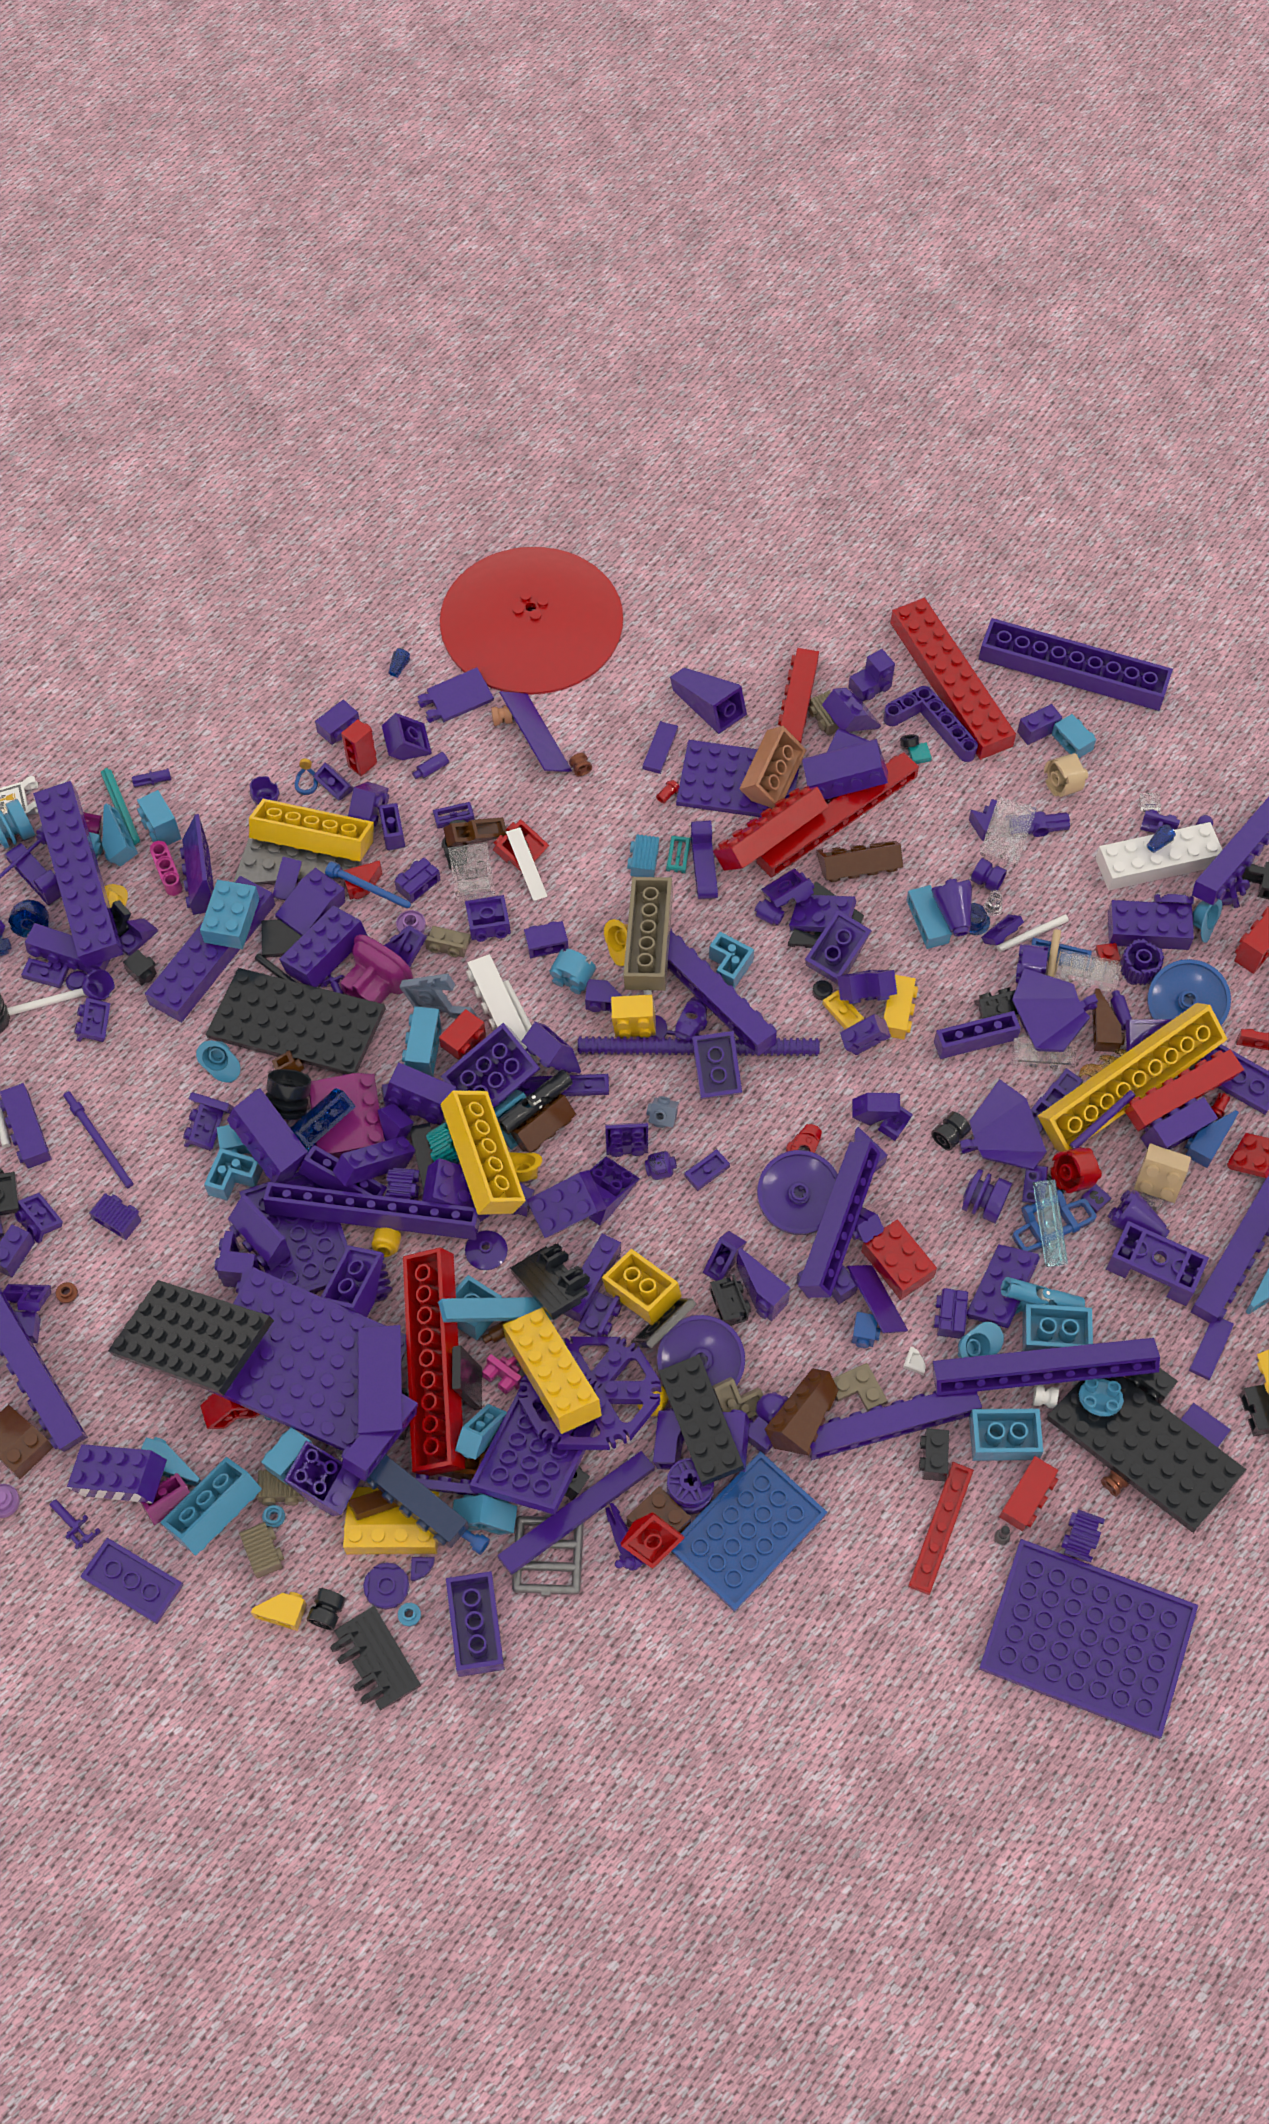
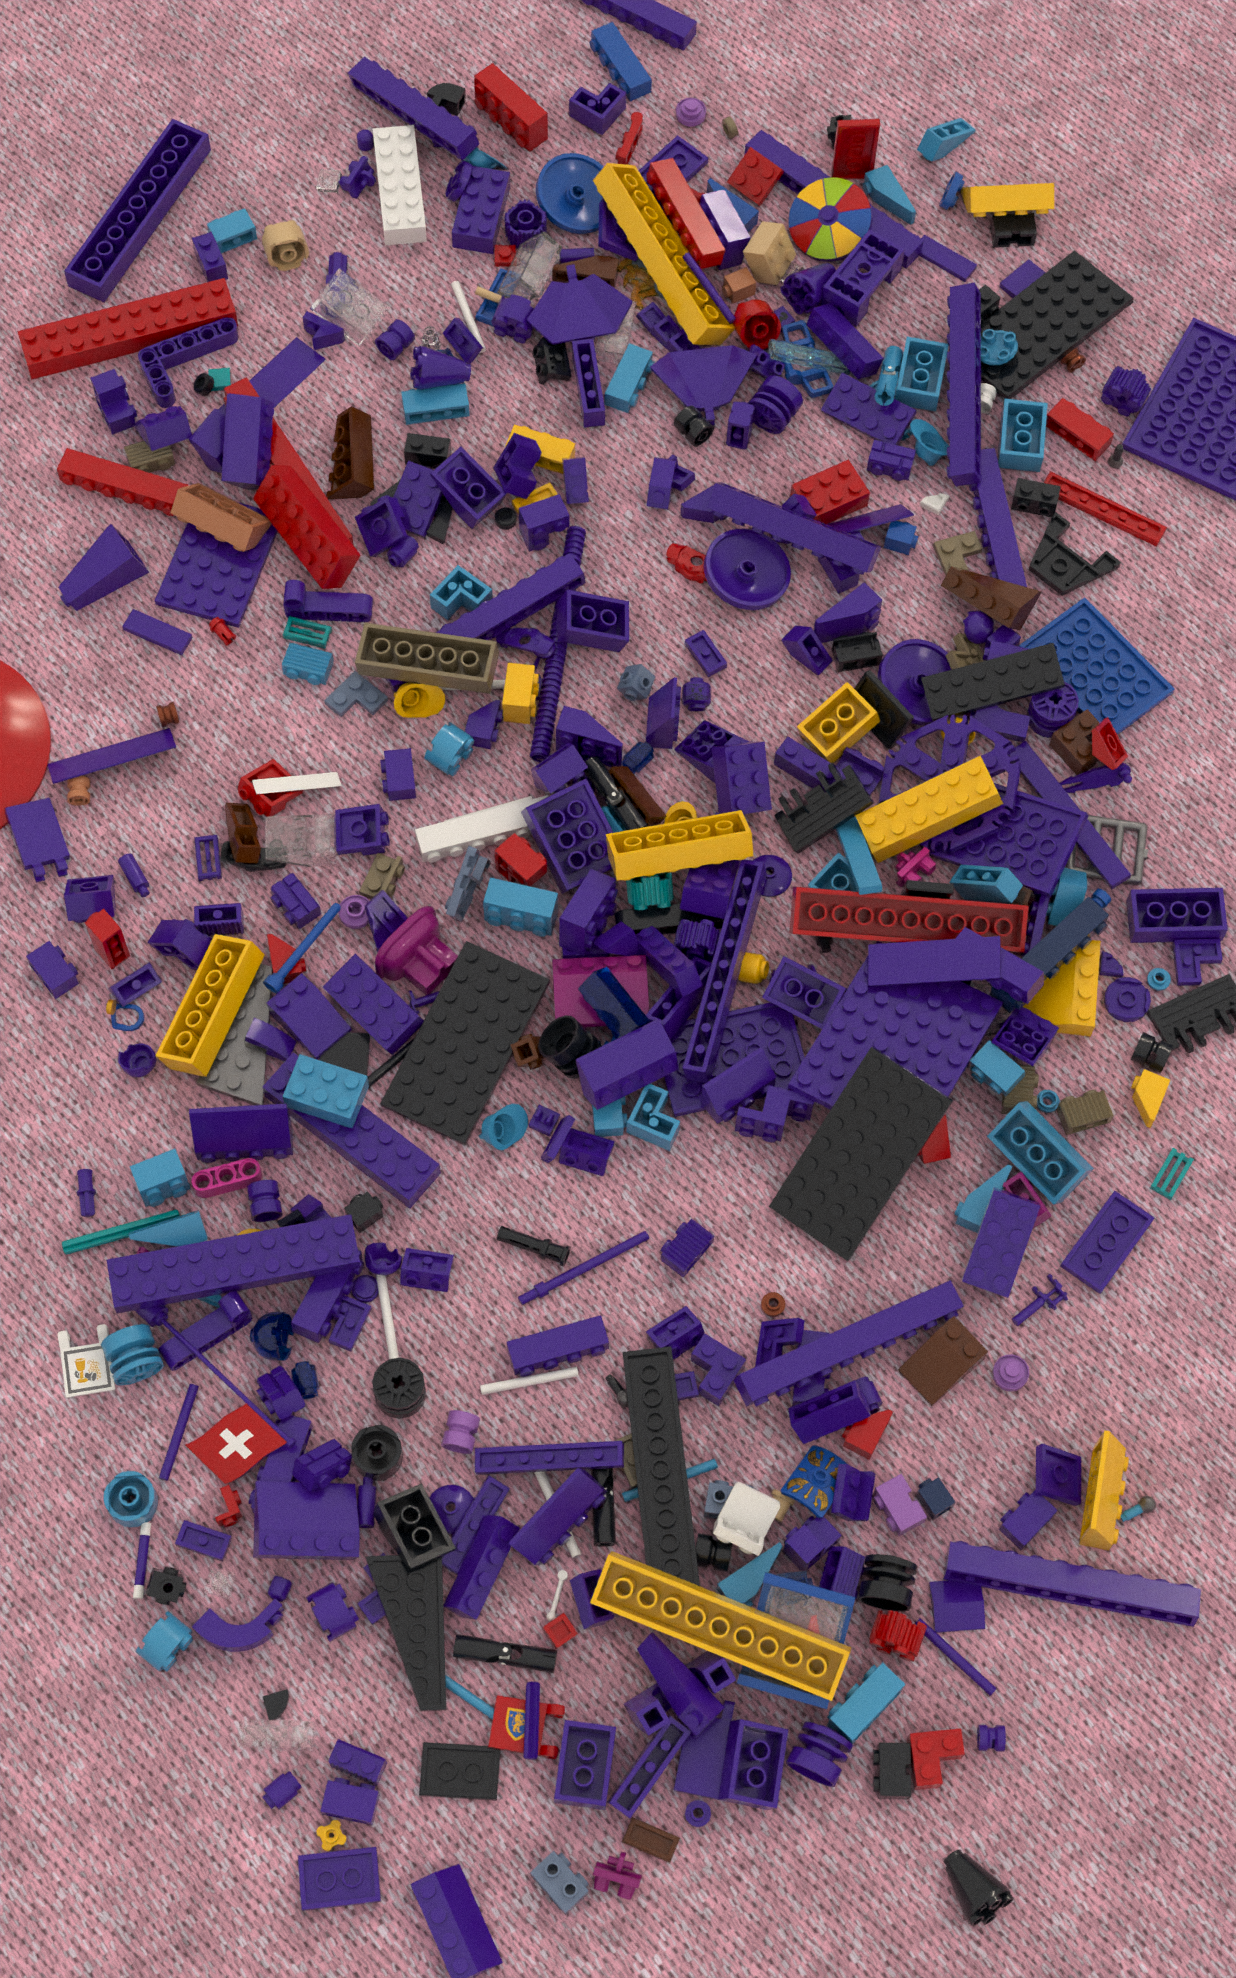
camera: 85 degrees left, 5 degrees up
(112, 1106) = (544, 1248): none -> black pin
(146, 896) = (265, 1201): none -> dark purple wheel
(188, 1631) = (1180, 1157): none -> teal tile
(231, 1093) = (544, 1120): none -> dark purple tile
(369, 1505) = (1050, 1000): reddish brown tile -> none
(433, 1641) = (1189, 956): none -> dark purple plate
(588, 1124) = (638, 756): none -> clear blue brick
(593, 1071) = (588, 737): none -> dark purple slope
(620, 892) = (355, 690): none -> sand blue plate
(813, 1011) = (540, 520): none -> dark purple brick
(863, 1486) = (1063, 567): none -> black wing
(876, 916) = (427, 450): none -> black brick
(937, 800) = (285, 372): none -> dark purple window
(957, 1168) = (740, 425): none -> dark purple brick
(989, 1068) = (629, 378): none -> dark azure brick
(1078, 1254) = (844, 341): none -> dark purple brick
(1123, 1154) = (739, 285): none -> nougat brick
(1162, 837) = (390, 169): clear blue cone -> none
(1221, 1226) = (829, 219): none -> dish

